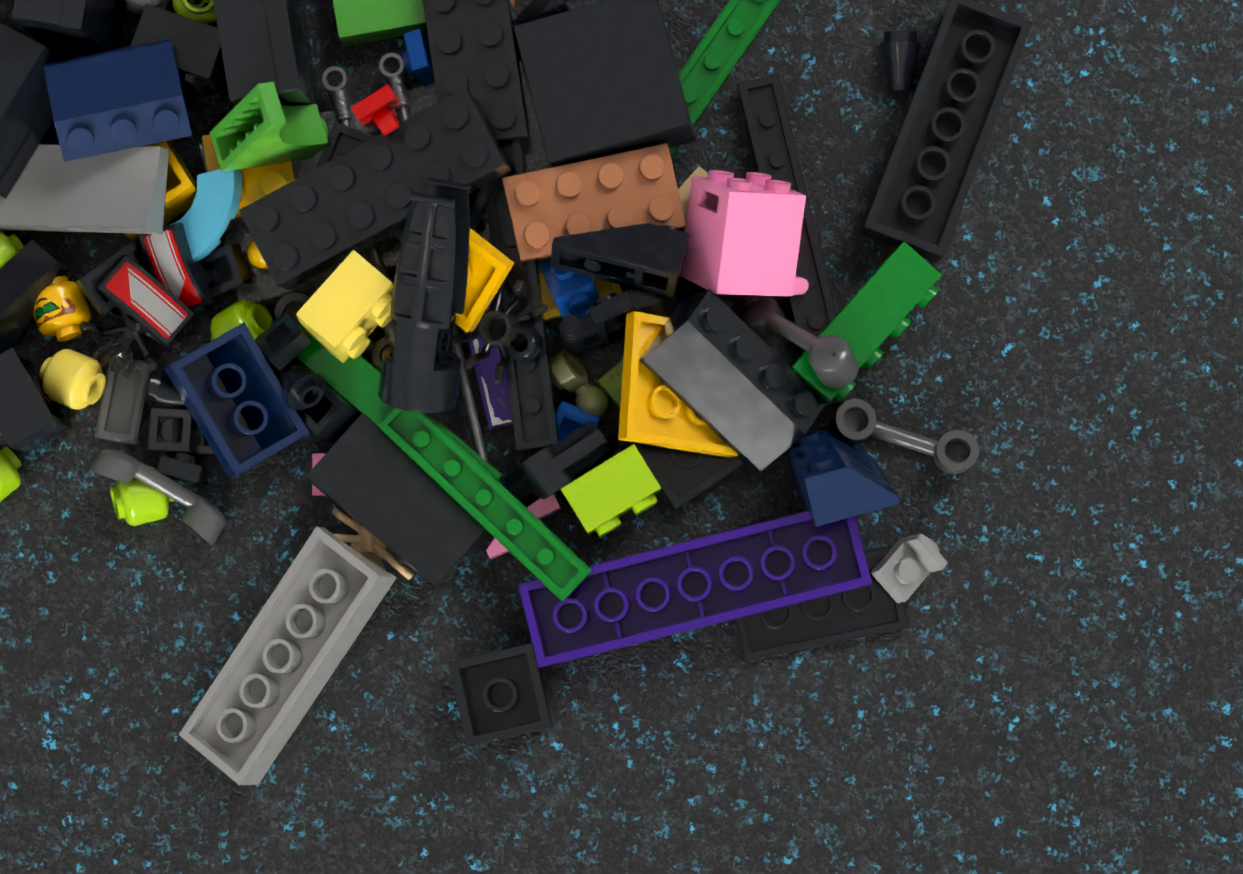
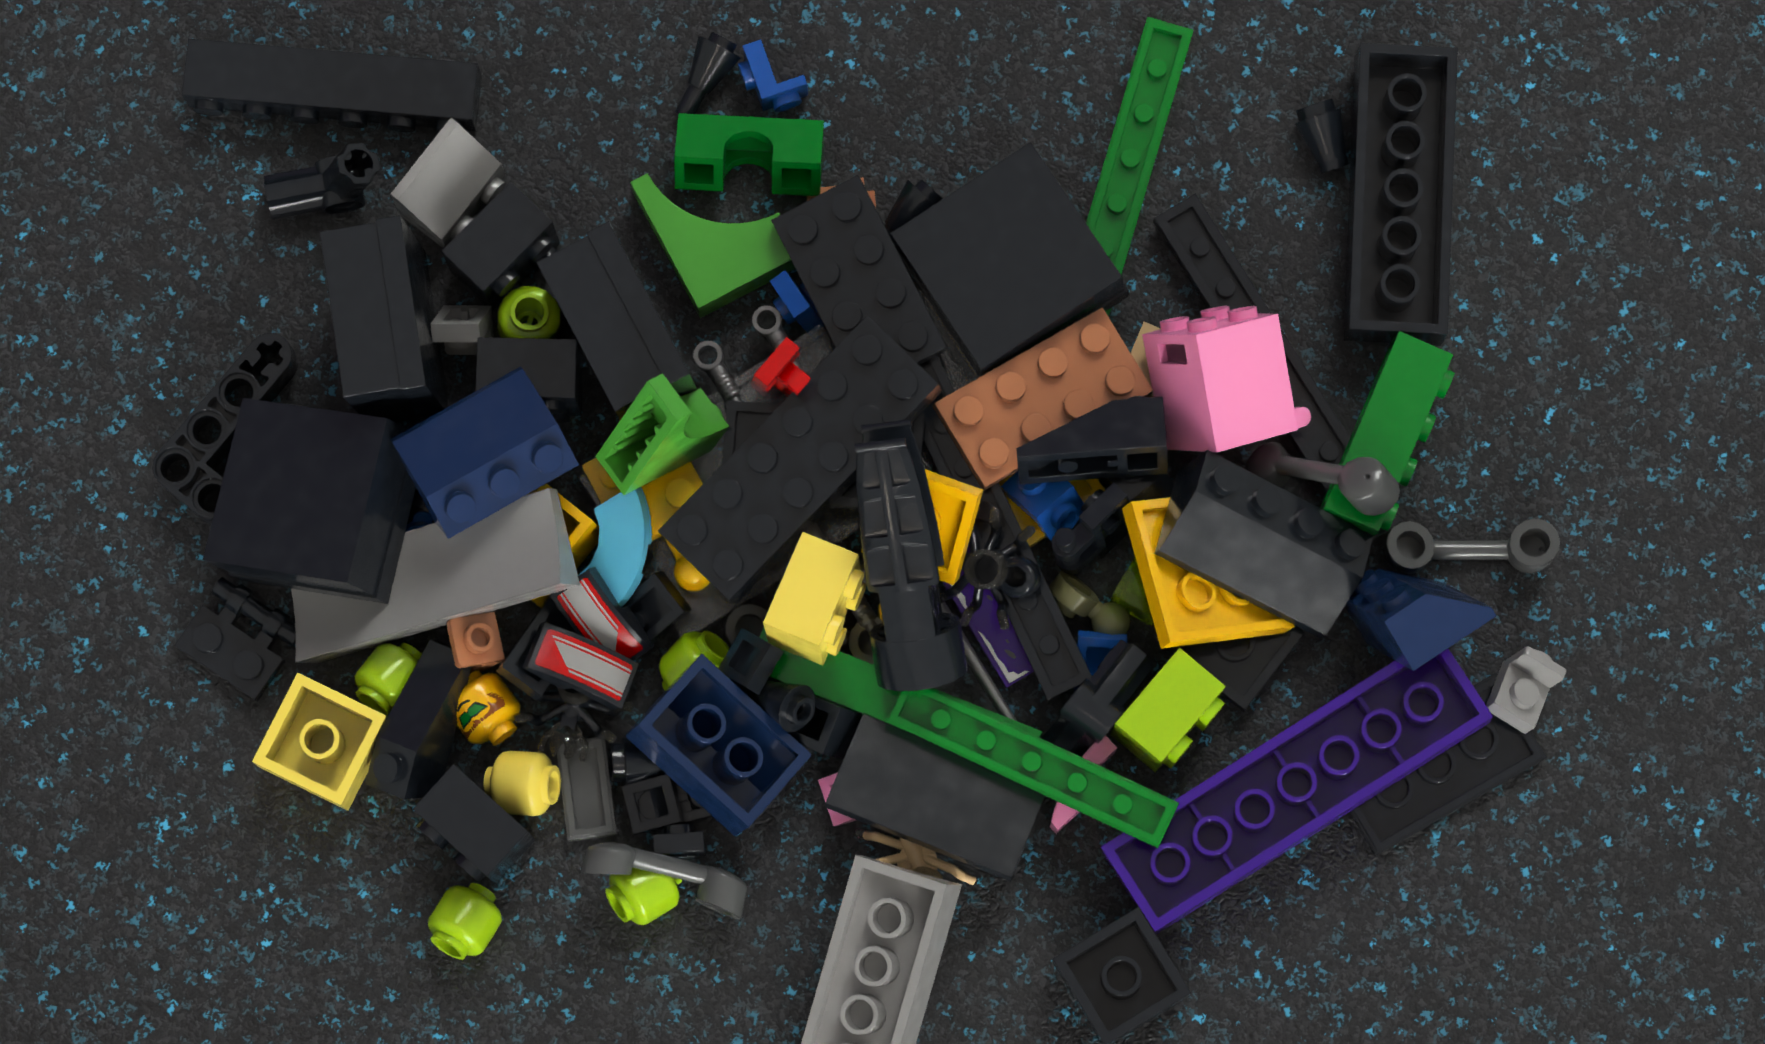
camera: 15 degrees left, 5 degrees down
(66, 252) = (475, 641): none -> nougat bracket

